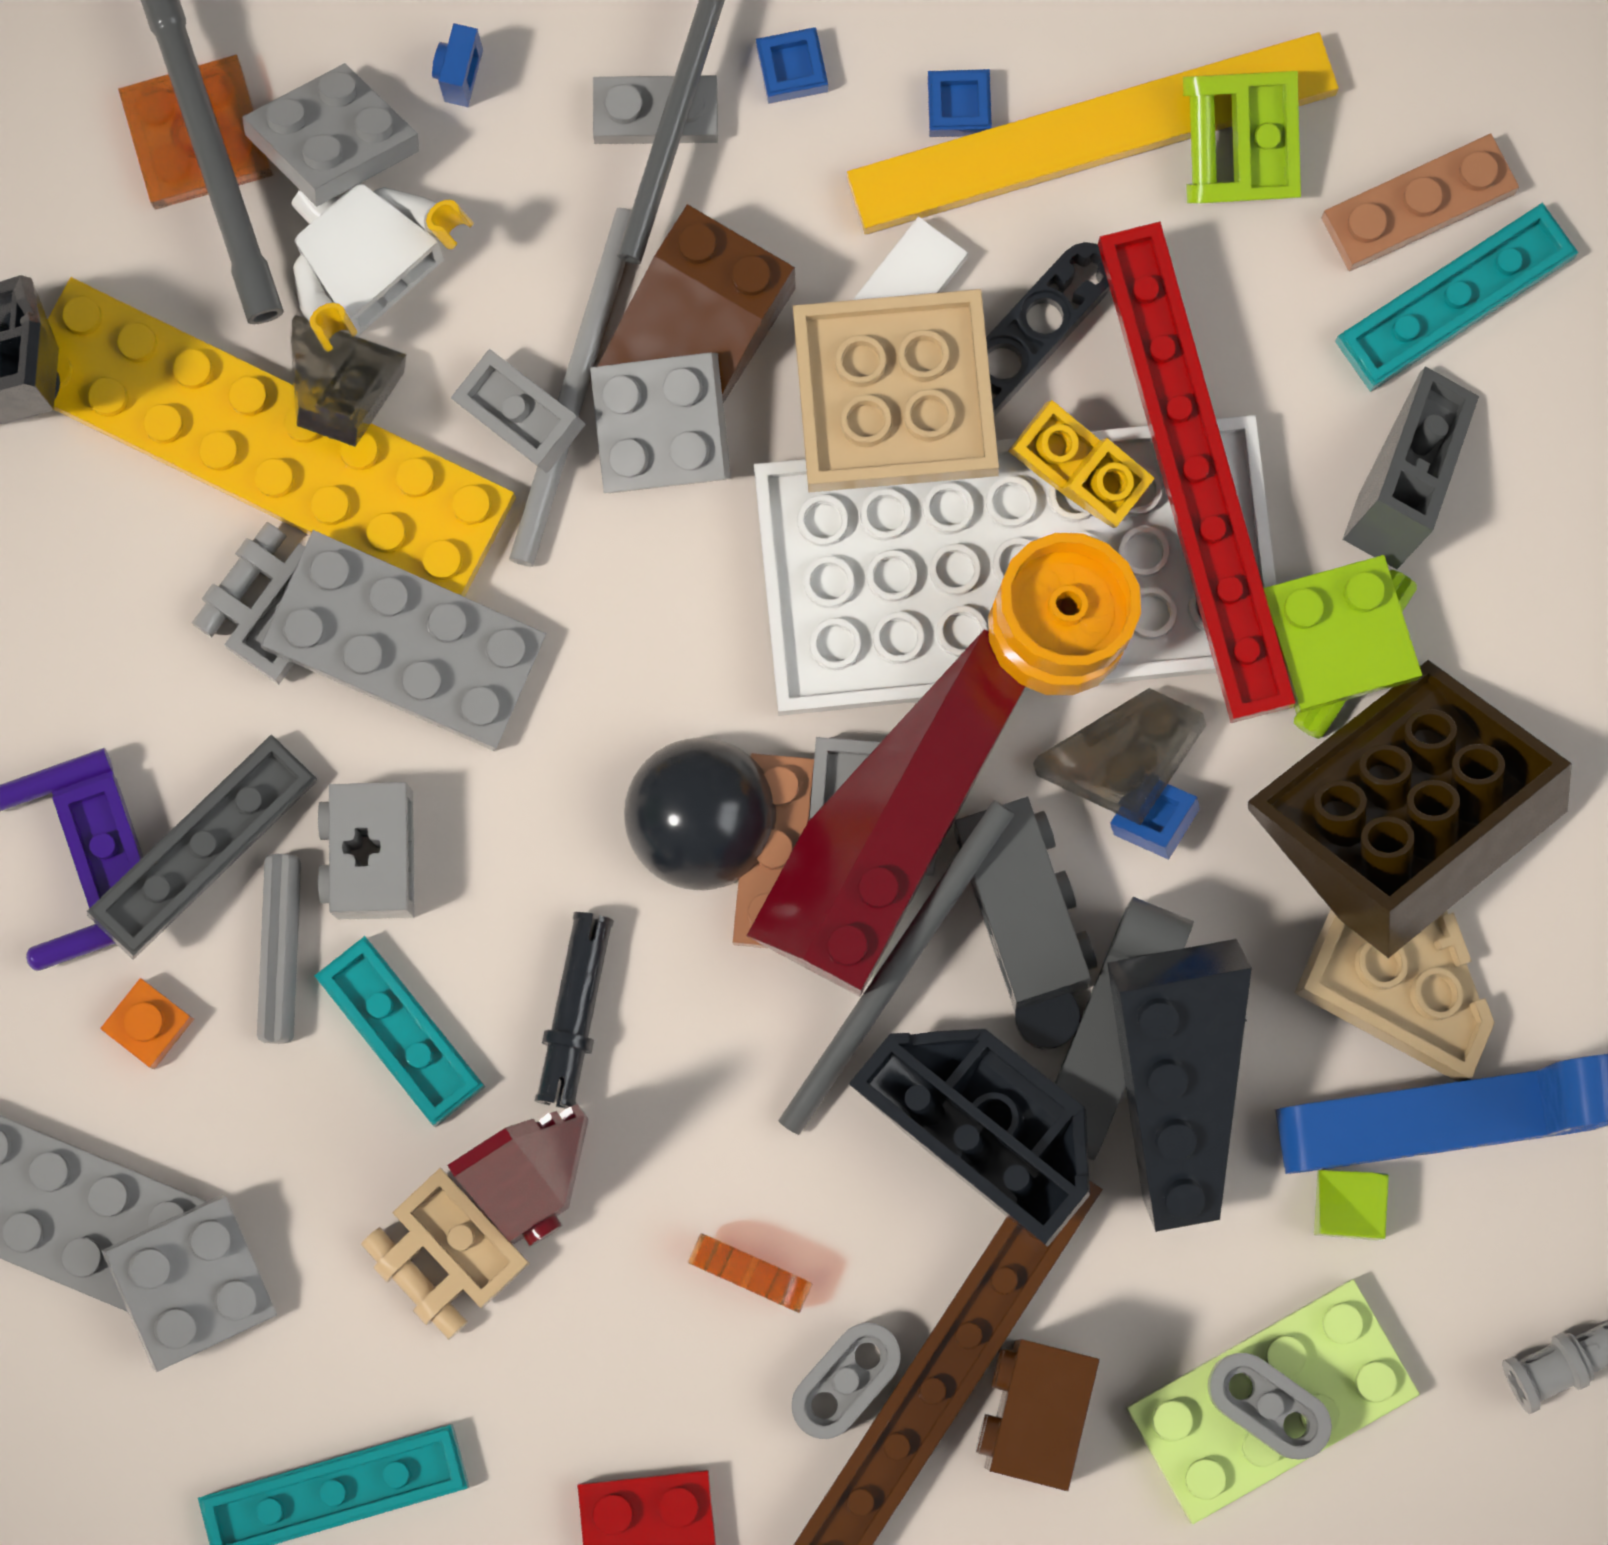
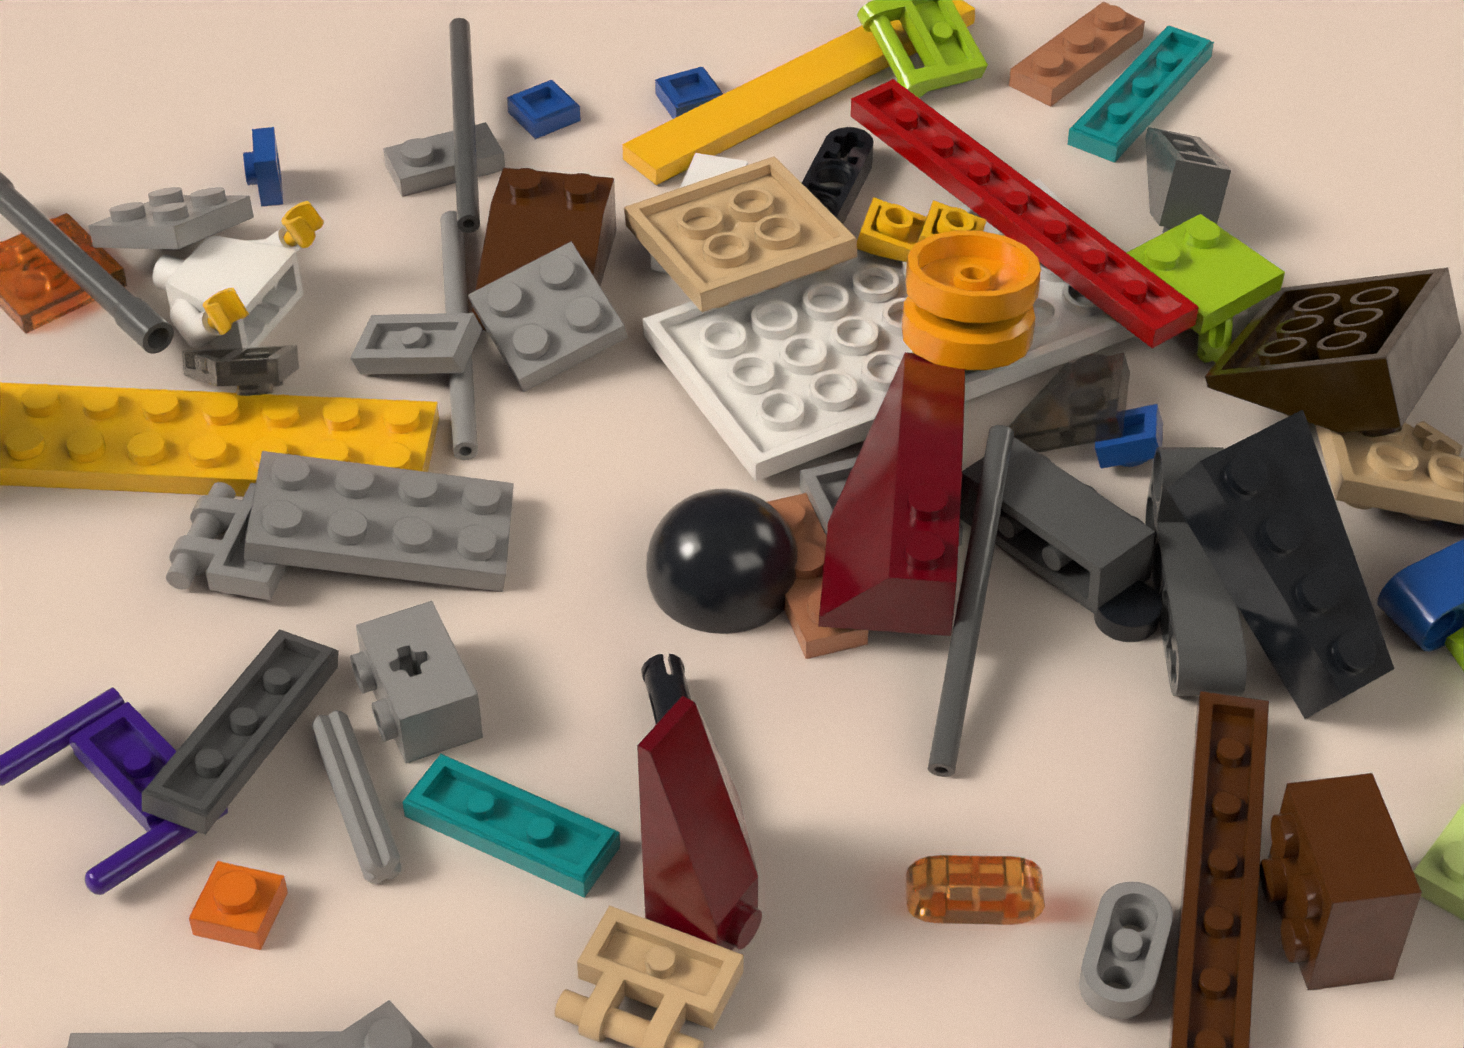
camera: 25 degrees left, 35 degrees down
(986, 1121) = (1131, 676): black wedge -> none

